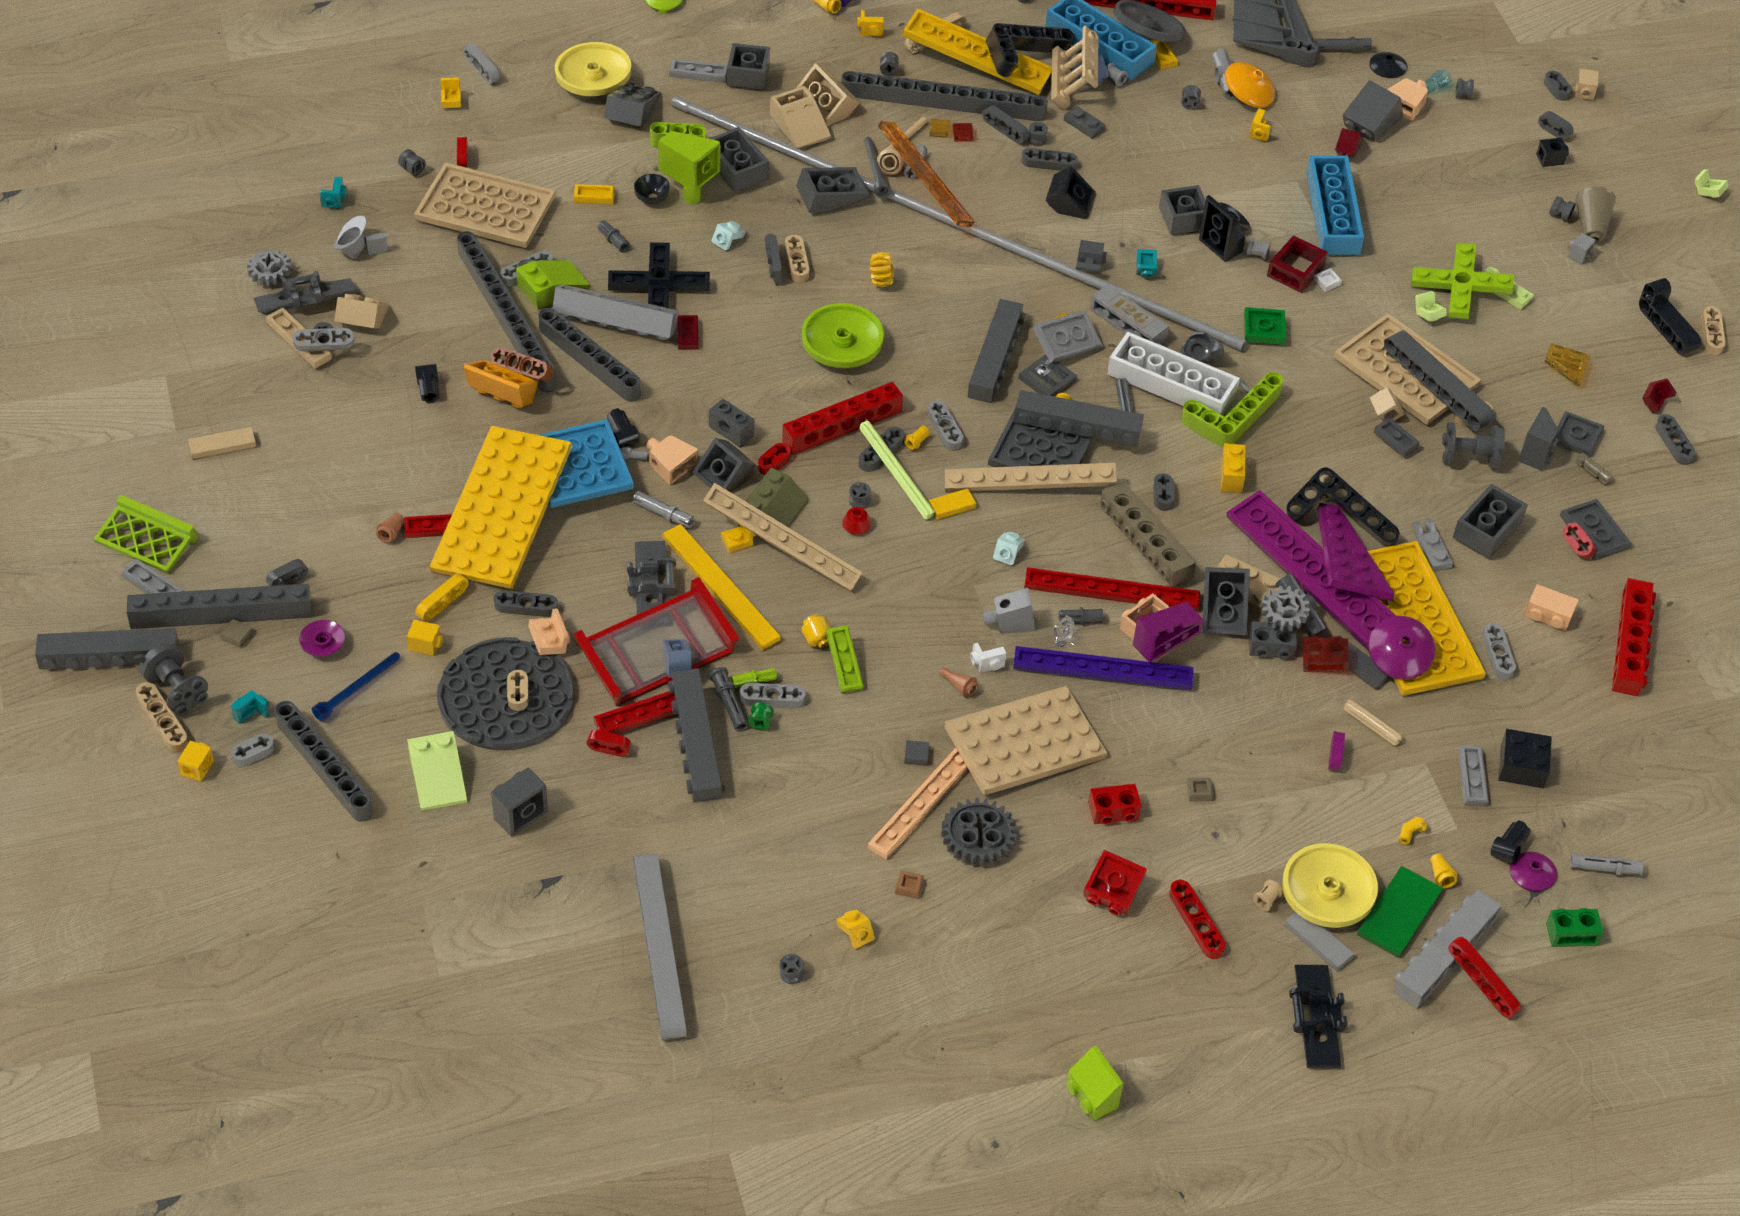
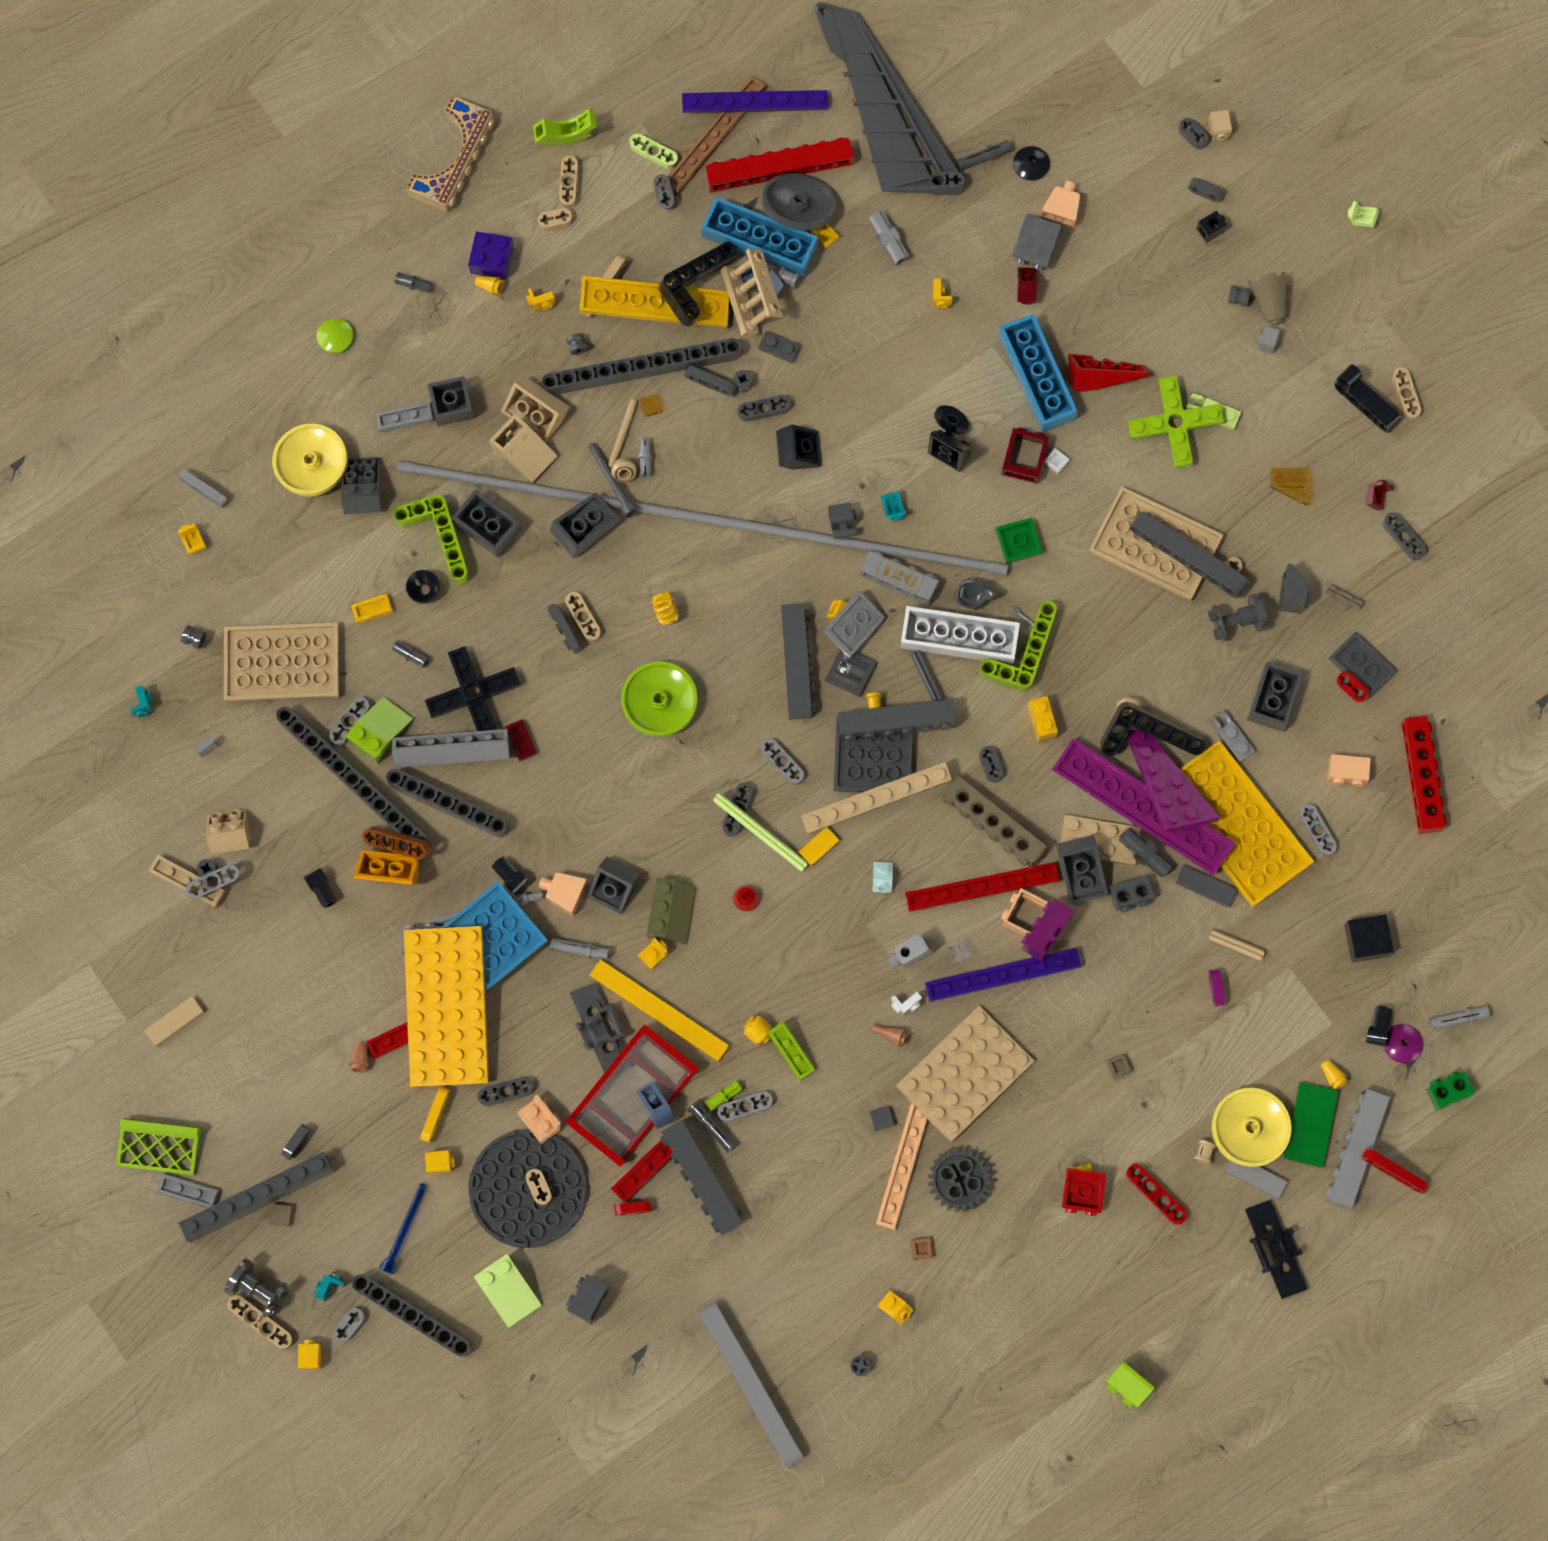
camera: 15 degrees left, 25 degrees up
(99, 647) = (184, 1275): dark grey brick -> none
(269, 267) = (131, 809): light grey gear -> none
(290, 298) = (172, 834): dark grey piece -> none
(322, 631) = (345, 1194): magenta dish -> none
(351, 237) = (181, 752): light grey piece -> none
(462, 152) = (233, 607): red beam -> none
(688, 158) = (448, 554): lime slope -> none
(726, 233) = (511, 613): light aqua bracket -> none
(731, 423) = (601, 834): dark grey brick -> none
(760, 716) = (744, 1134): green wheel -> none
(772, 456) = (647, 853): red beam -> none
(782, 537) = (694, 949): tan plate -> none
(842, 417) = (693, 791): red brick -> none
(859, 495) = (739, 866): dark grey wheel -> none
(913, 440) = (763, 786): yellow pin -> none
(926, 174) = (663, 478): clear orange tile -> none
(962, 132) = (674, 403): clear red tile -> none
(1083, 615) = (966, 927): dark grey axle -> none
(1110, 802) = (1055, 1106): red brick -> none
(1182, 209) = (906, 430): dark grey brick -> none
(1191, 97) = (866, 281): dark grey wheel -> none
(1250, 84) = (909, 249): light orange dish -> none
(1258, 248) = (985, 449): light grey bush -> none
(1287, 607) = (1126, 865): light grey gear -> none
(1325, 660) = (1181, 899): clear red brick -> none
(1386, 405) = (1151, 597): tan brick -> none
(1389, 222) = (1095, 374): none -> red wedge
(1394, 656) = (1228, 867): magenta dish -> none
(1396, 437) = (1169, 627): dark grey plate -> none
(1409, 827) = (1295, 1041): yellow arm -> none
(1428, 308) = (1155, 465): yellowish green bracket -> none
(1438, 80) = (1083, 172): clear light blue cone -> none
(1464, 88) = (1110, 173): dark grey wheel -> none
(1473, 775) = (1331, 967): light grey tile -> none
(1578, 433) = (1320, 561): dark grey tile -> none

